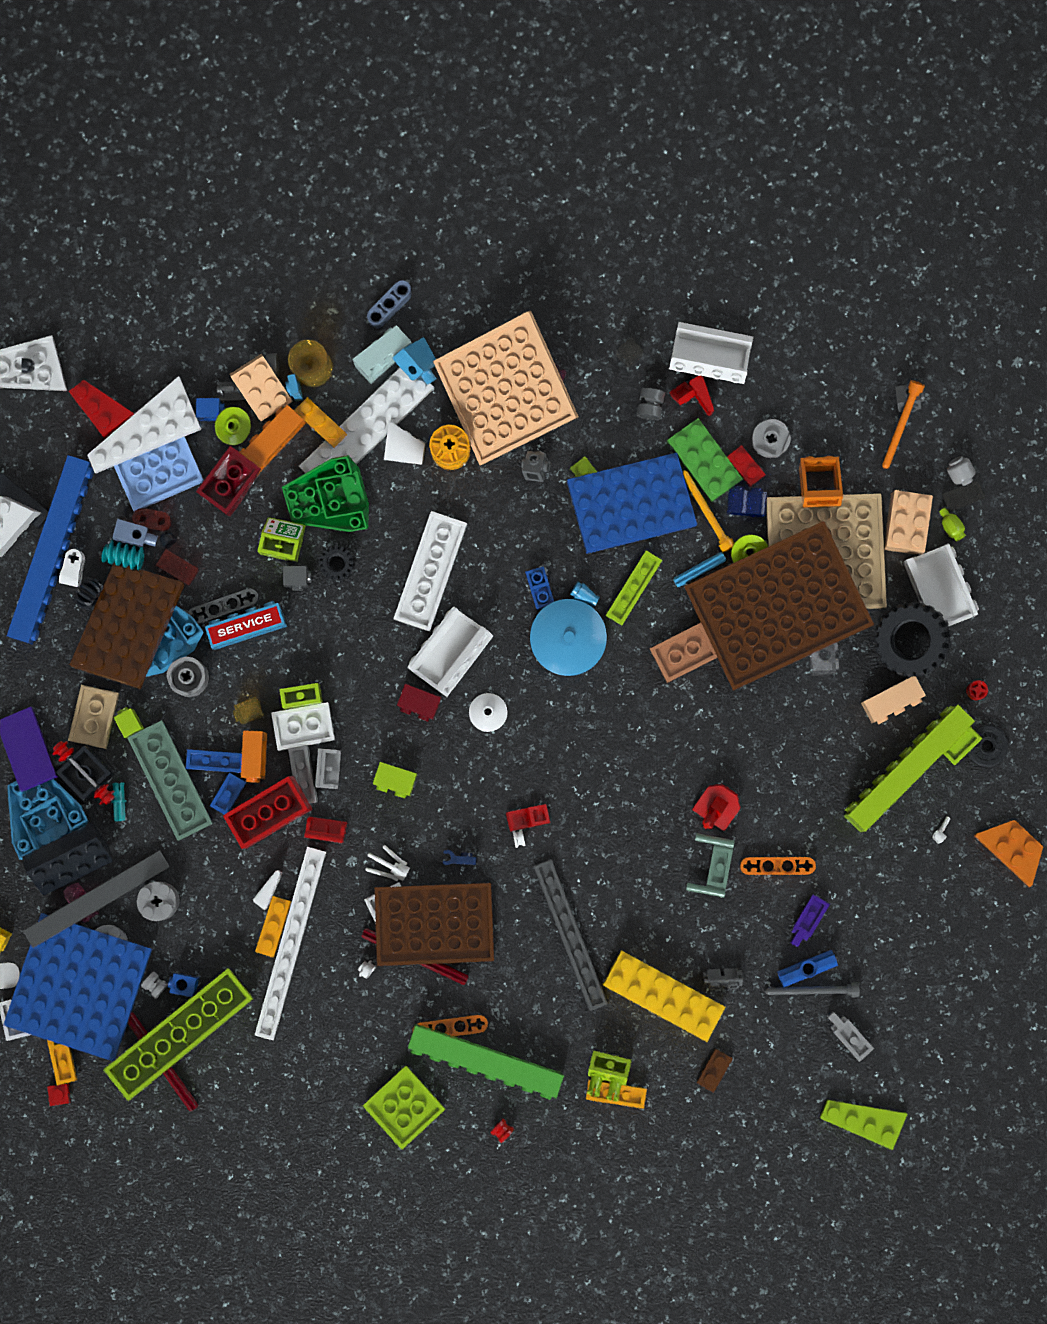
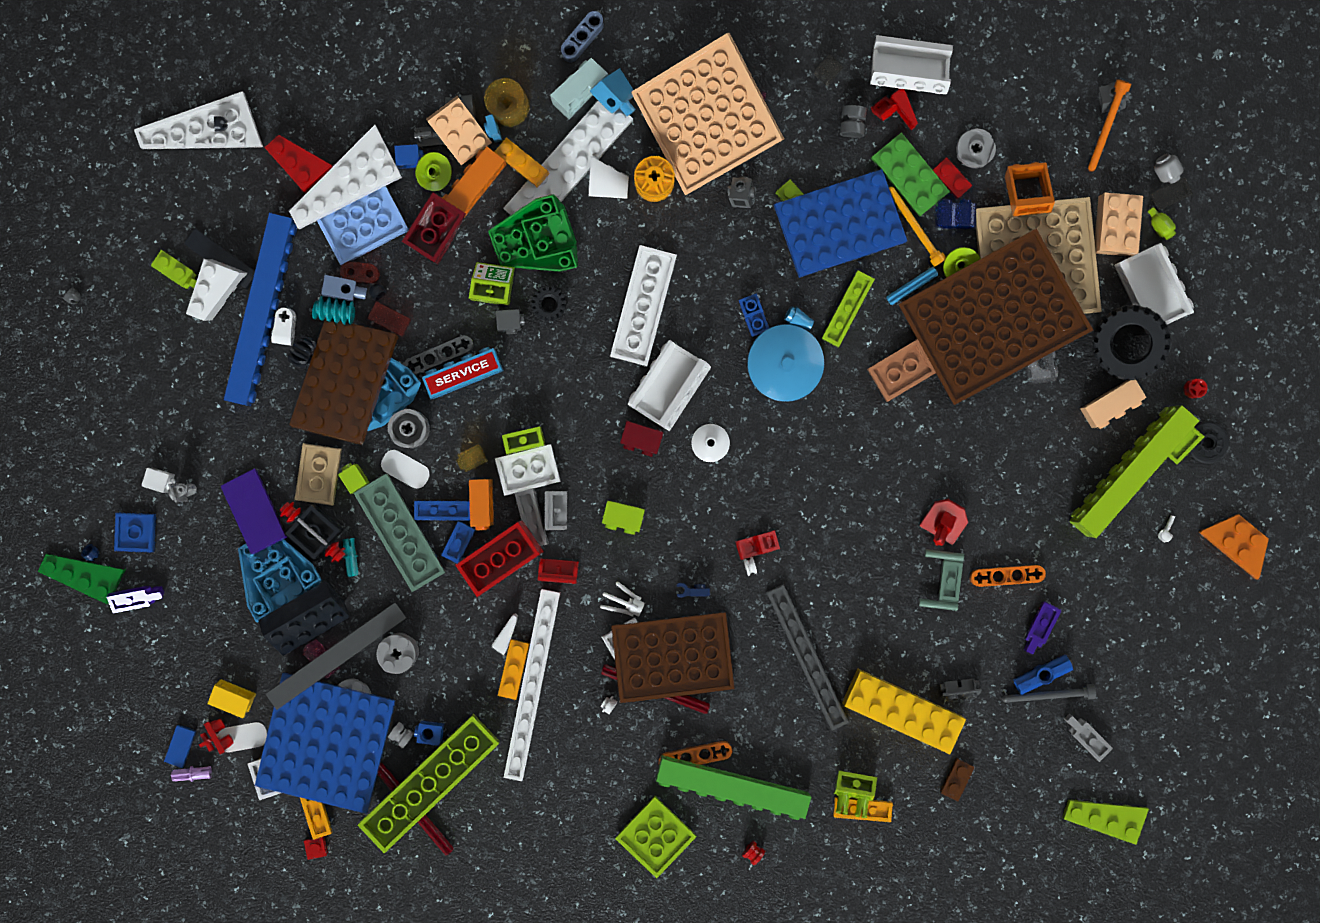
camera: 10 degrees left, 5 degrees up
(180, 717) = (405, 469): none -> white sticker

